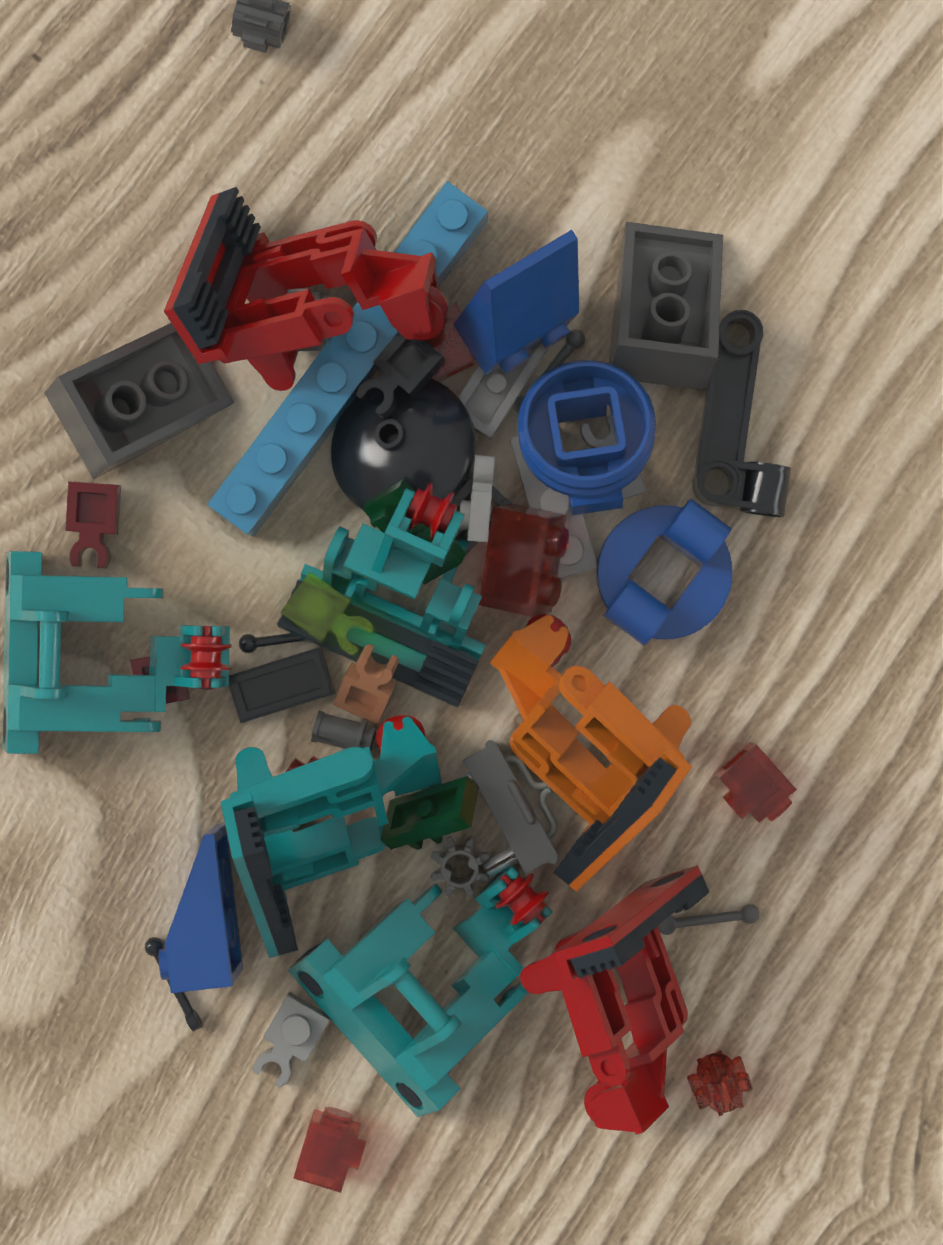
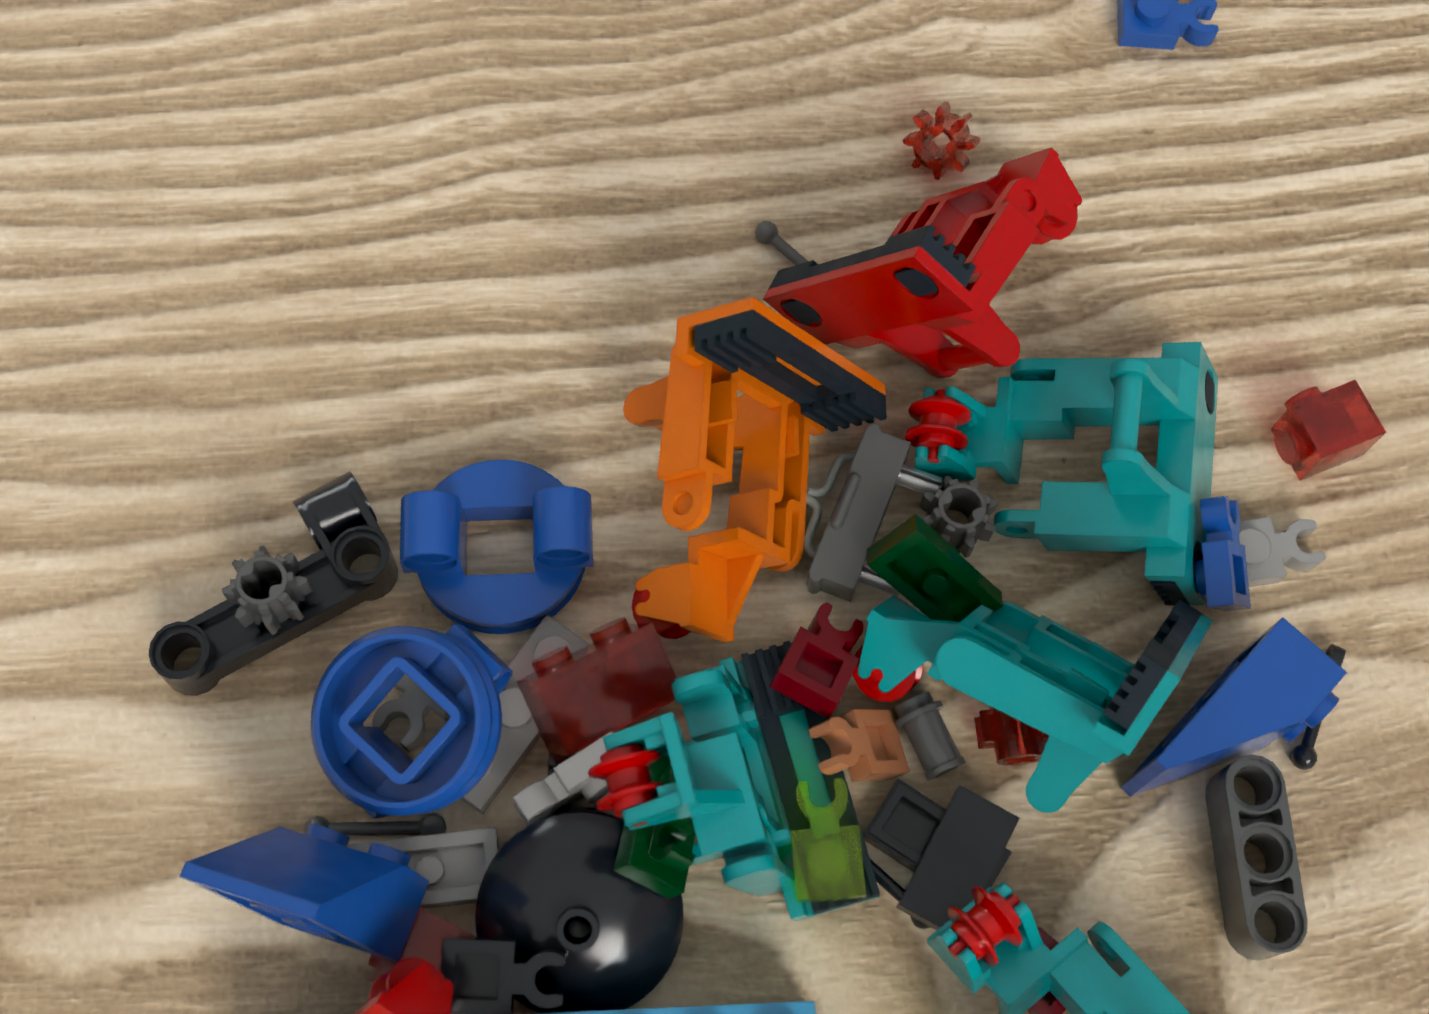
camera: 140 degrees left, 20 degrees down
(98, 858) = (1270, 829): none -> dark grey beam
(260, 685) = (957, 857): none -> black tile
(296, 997) = (1223, 570): none -> blue plate
(432, 695) = (819, 663): none -> dark red plate
(668, 305) = (206, 755): dark grey slope -> none
(749, 406) = (252, 581): none -> dark grey gear
(755, 785) = (640, 309): clear red brick -> none

